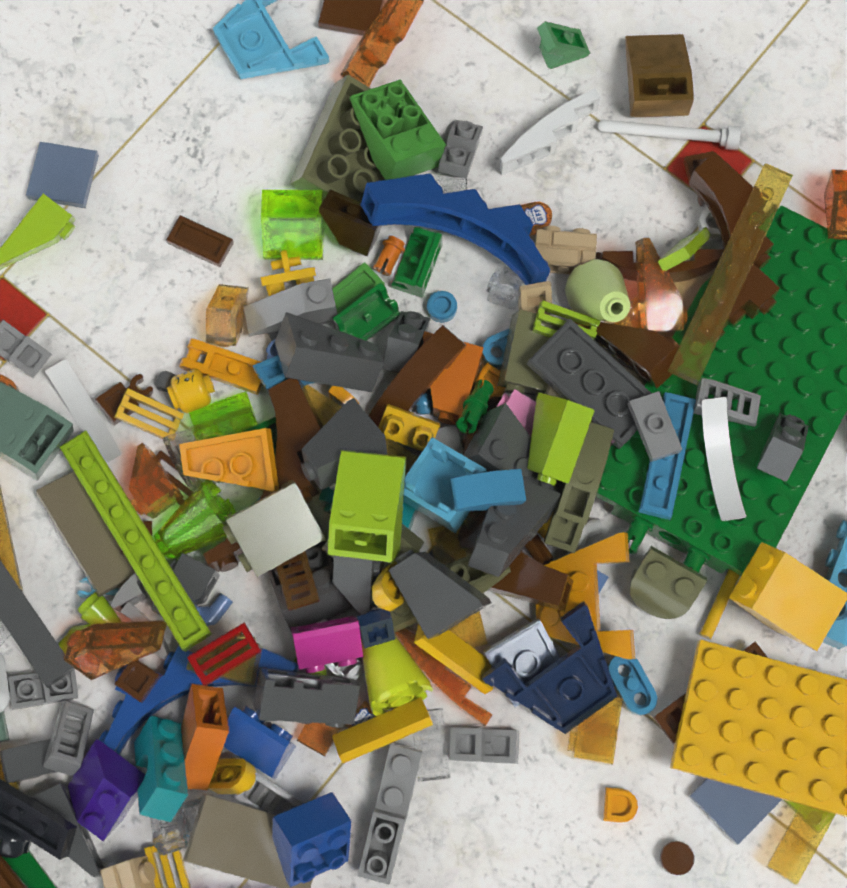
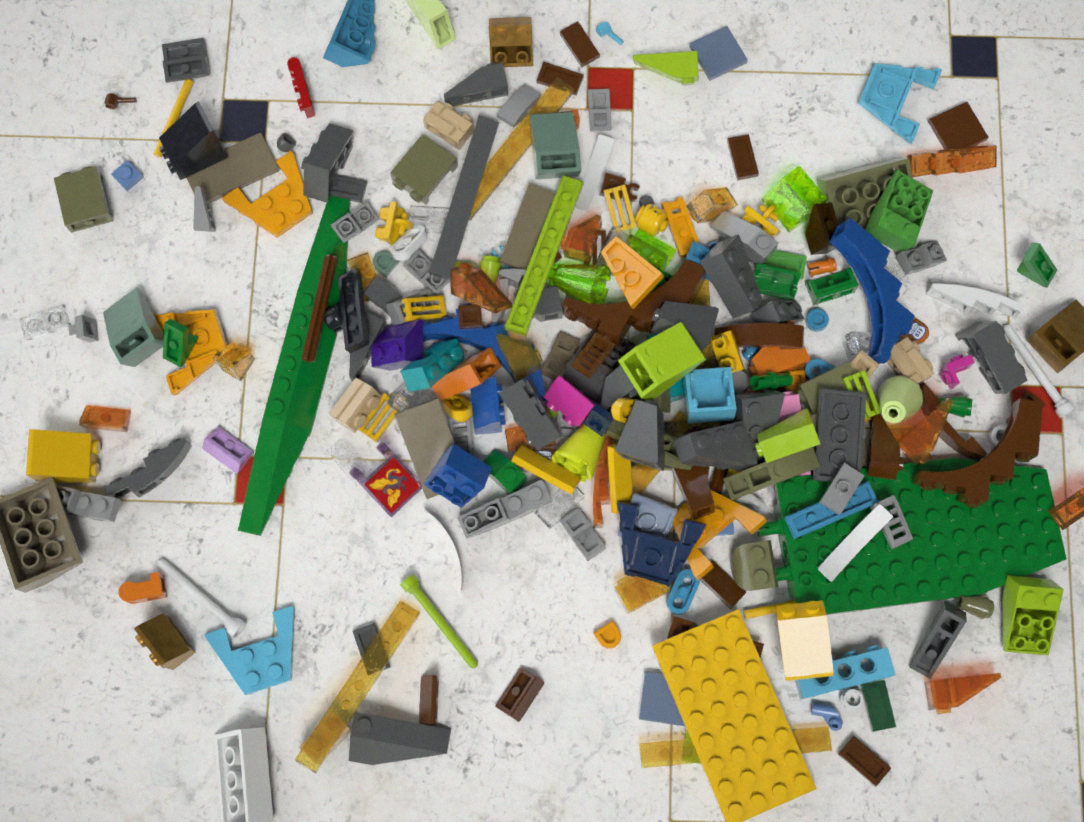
camera: 50 degrees right, 0 degrees up
(71, 745) = (408, 309): none -> yellow tile
(200, 669) = (533, 363): red tile -> none
(214, 613) = (540, 331): medium blue arm -> none
(263, 612) = (560, 355): none -> dark tan slope
(273, 529) = (608, 322): panel -> none
(340, 395) = (716, 301): light orange tile -> none
(346, 780) = (505, 472): none -> green slope
(488, 489) = (725, 418): dark azure slope -> none
(605, 219) = (956, 365): none -> dark pink bracket
(623, 159) = (995, 356): none -> dark grey wedge
(650, 229) = (961, 405): none -> green cone
(658, 634) = (723, 586): none -> reddish brown slope
(677, 858) = (604, 689): reddish brown tile -> none
(684, 249) = (966, 429): lime tile -> none
(730, 274) = (972, 464): clear yellow tile -> none
(783, 446) = (891, 572): dark grey slope -> none

